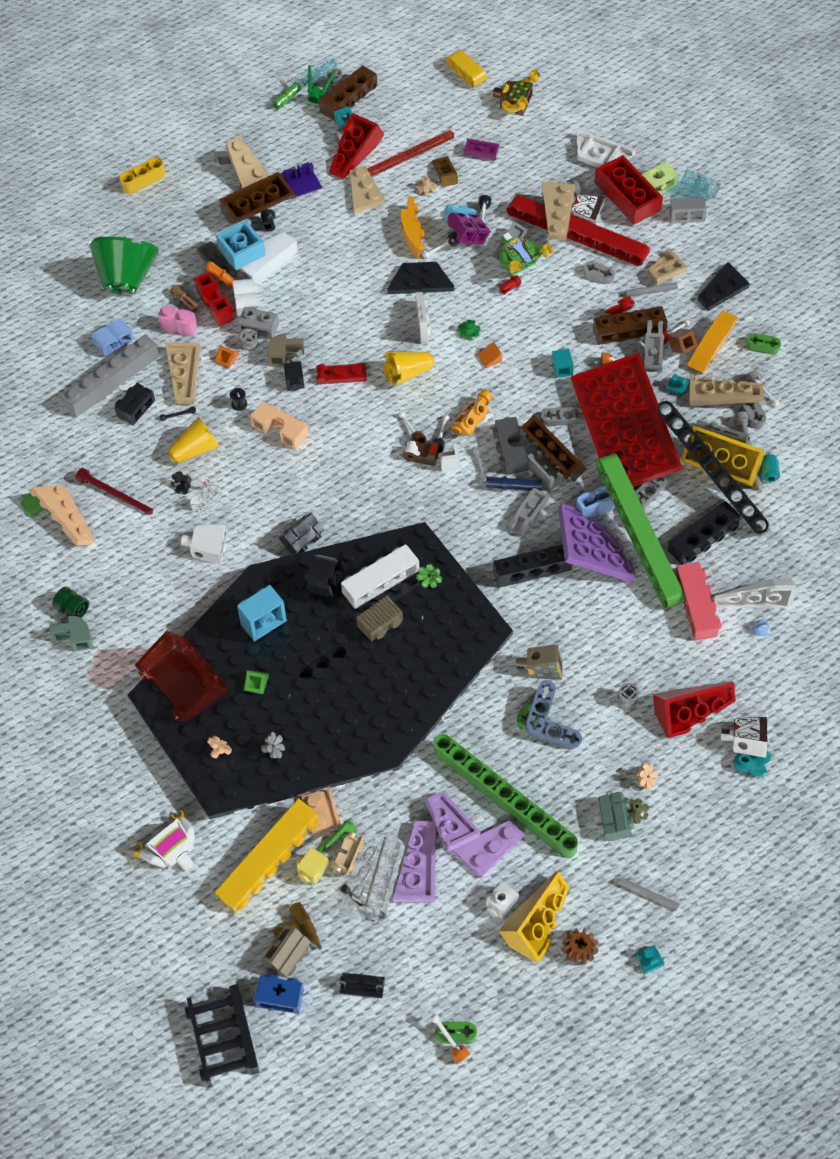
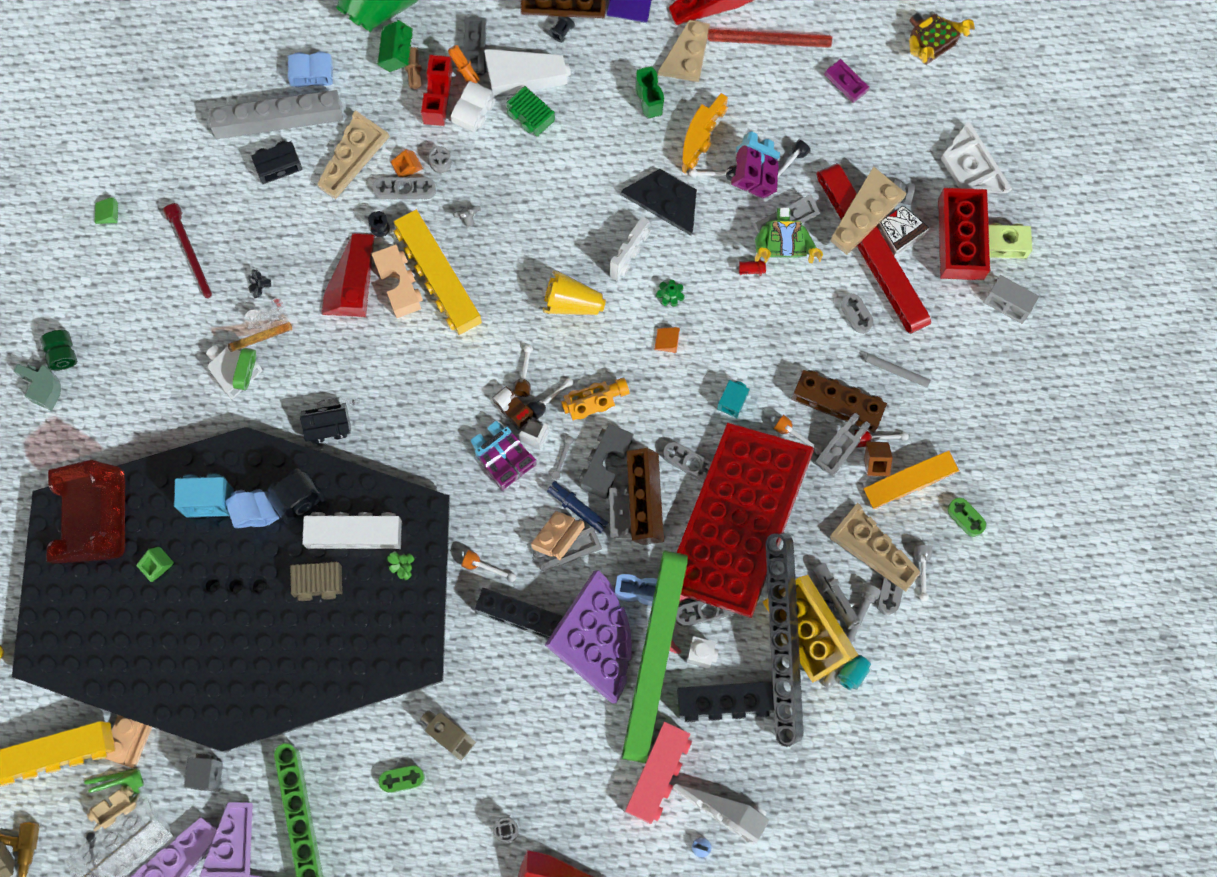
camera: 30 degrees right, 15 degrees up
(65, 512) = (124, 243): light nougat wing -> none
(162, 289) = (395, 46): none -> green brick
(178, 321) = (384, 92): bright pink brick -> none
(192, 410) = (329, 204): black hinge -> none
(192, 442) = (299, 246): yellow cone -> none
(209, 513) = (258, 337): none -> clear orange bar
(219, 746) = (65, 613): light nougat plant -> none
(220, 530) = (244, 369): none -> bright green beam
(223, 373) = (398, 181): none -> light grey beam
(240, 245) = (500, 46): medium azure brick -> none
(246, 444) = (350, 282): none -> red wedge
(261, 321) = (462, 146): light grey brick -> none
(273, 745) = (115, 649): light grey plant -> none
(280, 347) = (461, 190): dark tan brick -> none
(287, 277) = (530, 111): none -> green brick
(294, 376) = (452, 233): black brick -> none
(301, 600) = (251, 509): none -> light blue brick
(303, 404) = (437, 272): none -> yellow brick
(312, 866) = (70, 796): light yellow brick -> none
(341, 373) = (503, 260): red plate -> none
(359, 222) = (649, 92): none -> green brick
(396, 789) = (203, 773): none -> dark grey brick
(425, 185) = (755, 88): tan plant -> none
(438, 483) = (501, 447): none -> hips
(446, 173) = (784, 94): pearl gold slope -> none
(470, 556) = (472, 561): none -> hinge
(515, 504) = (557, 535): none -> light nougat plate
(543, 724) = (399, 803): sand blue beam -> none
(624, 305) = (845, 376): red plate -> none
(666, 267) = (933, 355): tan wing -> none
(666, 515) = (702, 652): none -> white brick
(677, 385) = (835, 505): teal tile -> none
(700, 184) = (1048, 277): clear light blue brick -> none
(723, 287) = (977, 419): black wing -> none

